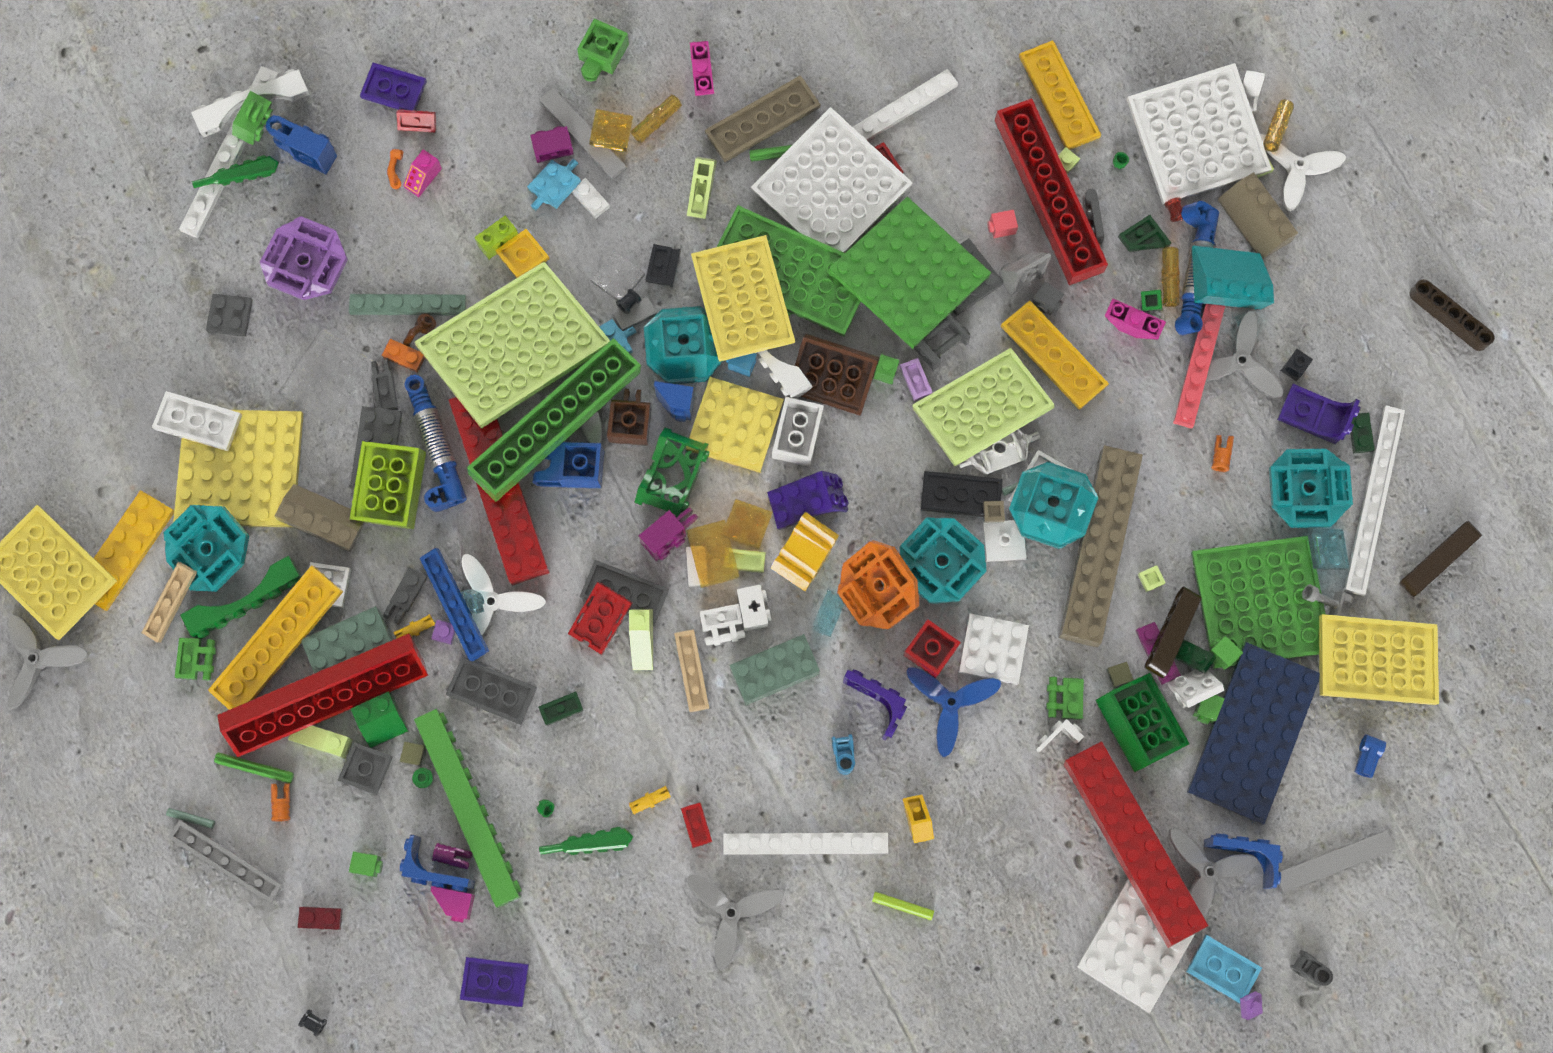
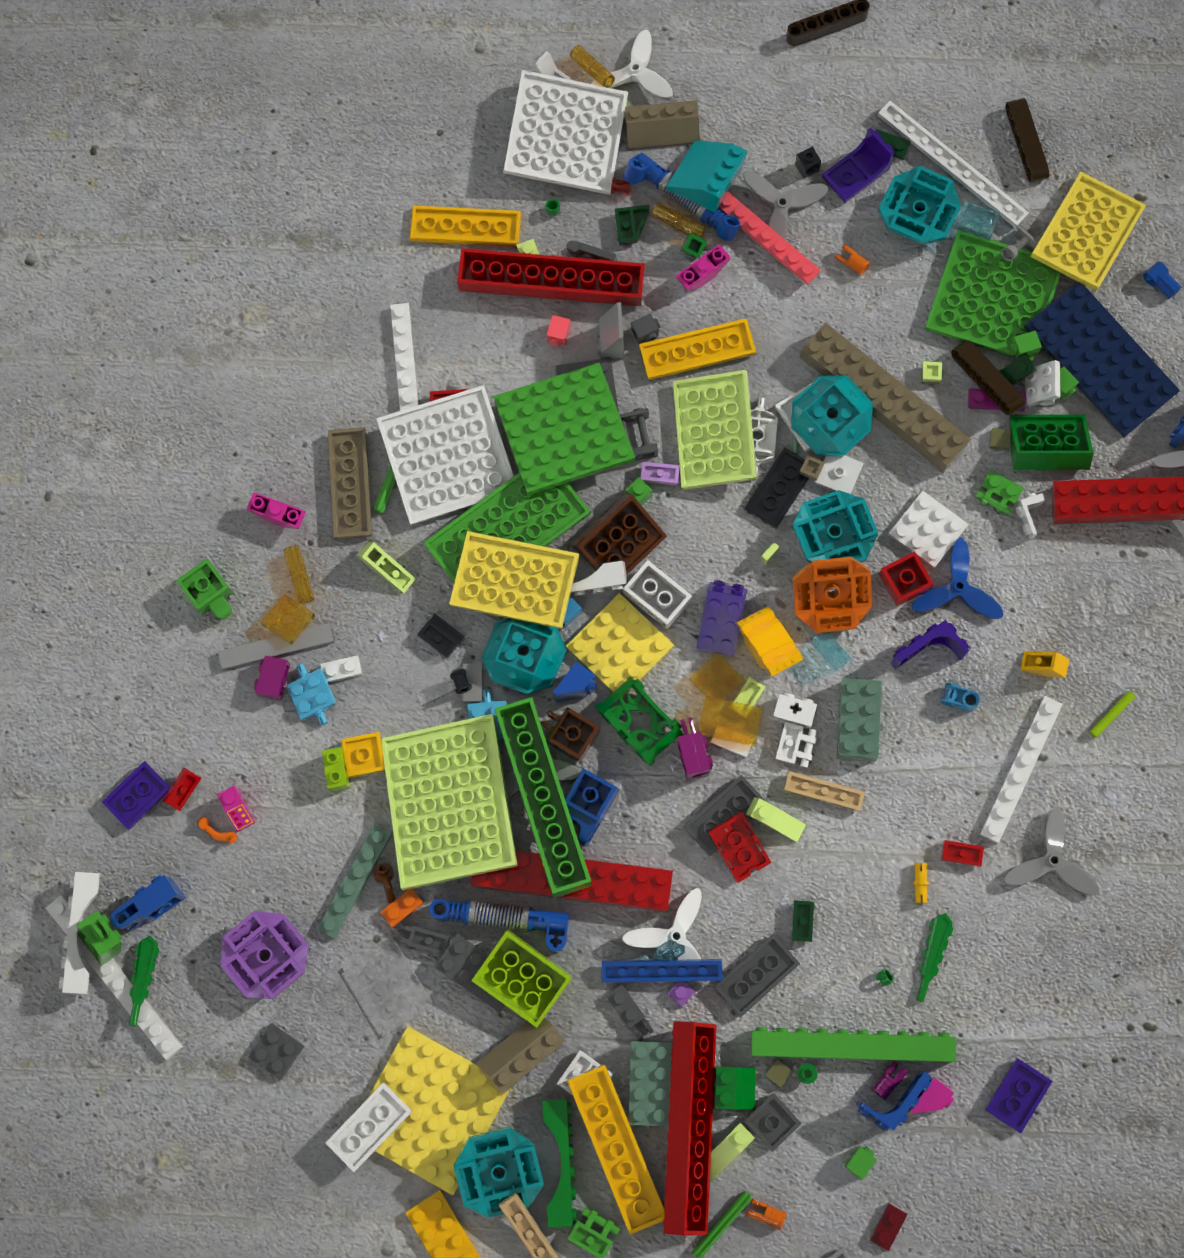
camera: 55 degrees left, 0 degrees up
(416, 627) = (665, 1017): yellow pin -> none
(891, 514) = (769, 553): none -> yellowish green tile

